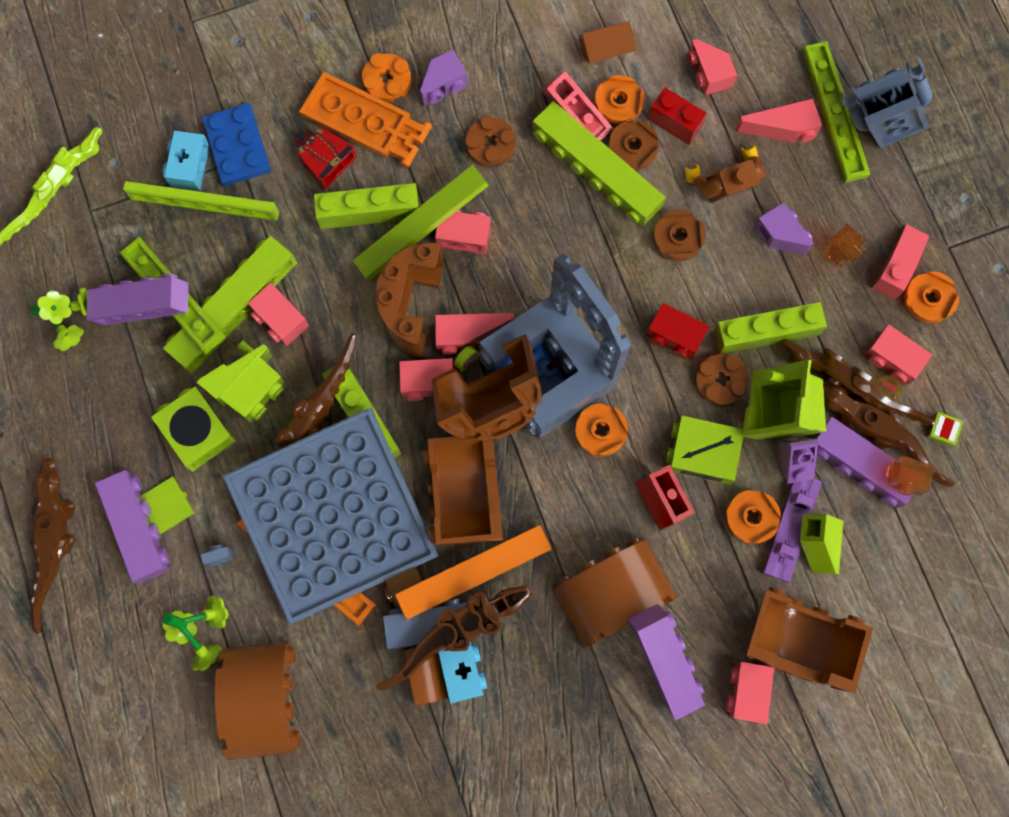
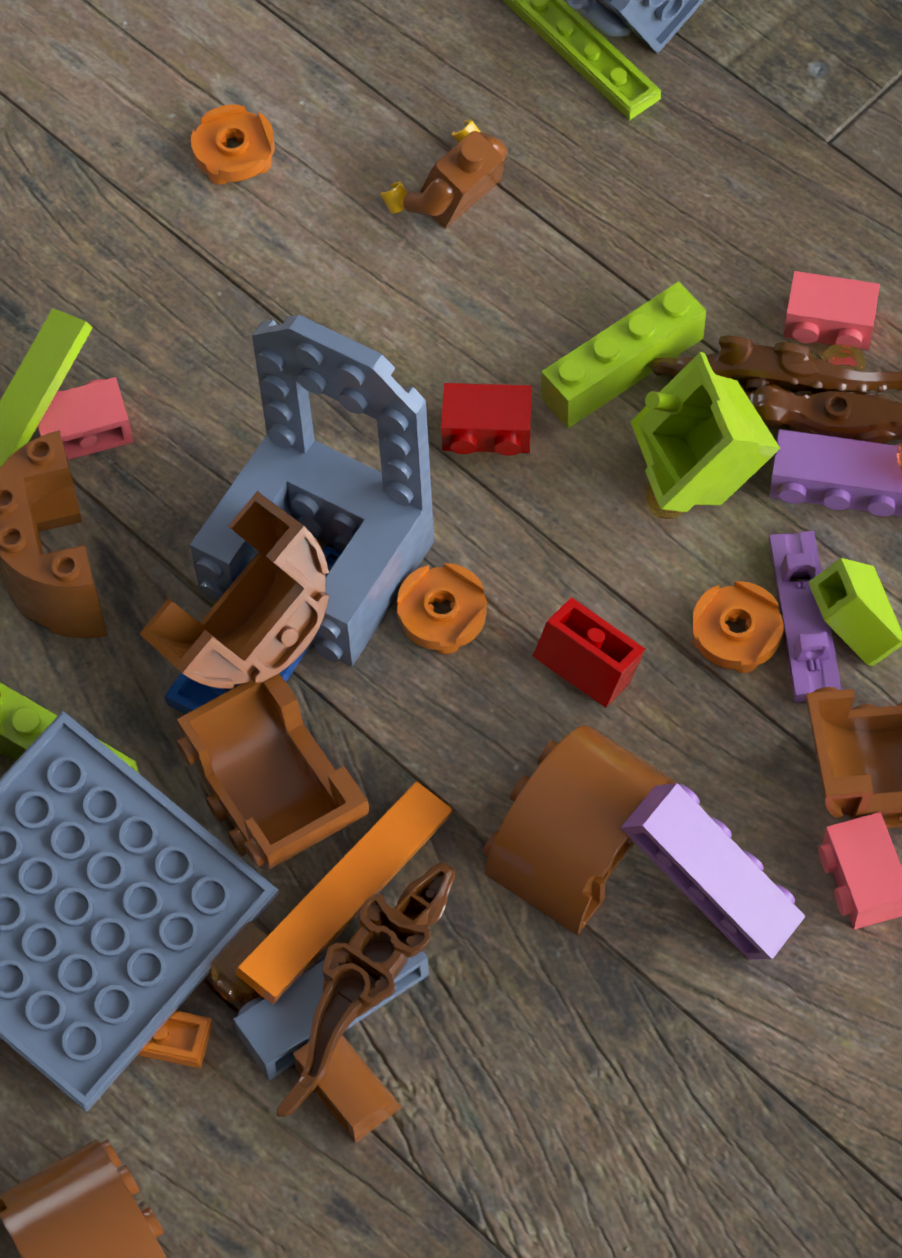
camera: 25 degrees left, 15 degrees down
(417, 377) = (119, 656): coral brick -> none
(457, 687) = (408, 1076): medium azure brick -> none
(463, 330) = (154, 558): coral slope -> none
(466, 358) = (180, 590): lime tile -> none
(490, 128) = (58, 261): dark orange plate -> none
(575, 102) = (171, 177): coral slope -> none
(598, 164) = (245, 241): lime brick -> none
(607, 42) = (173, 71): dark orange brick -> none
(633, 132) = (286, 216): dark orange plate -> none
(676, 250) = (425, 310): dark orange plate -> none
(677, 116) = (332, 127): red brick -> none
(705, 450) = (617, 561): lime brick -> none
(712, 67) = (350, 42): coral slope -> none
(732, 369) = (592, 436): dark orange plate -> none
(783, 232) = (574, 217): medium lavender slope -> none
(784, 123) = (496, 74): coral slope -> none
(798, 459) = (760, 506): medium lavender slope -> none
(845, 246) = (674, 198): clear orange brick -> none
(901, 263) = (769, 190): coral slope -> none
(944, 292) = (836, 236): orange plate -> none

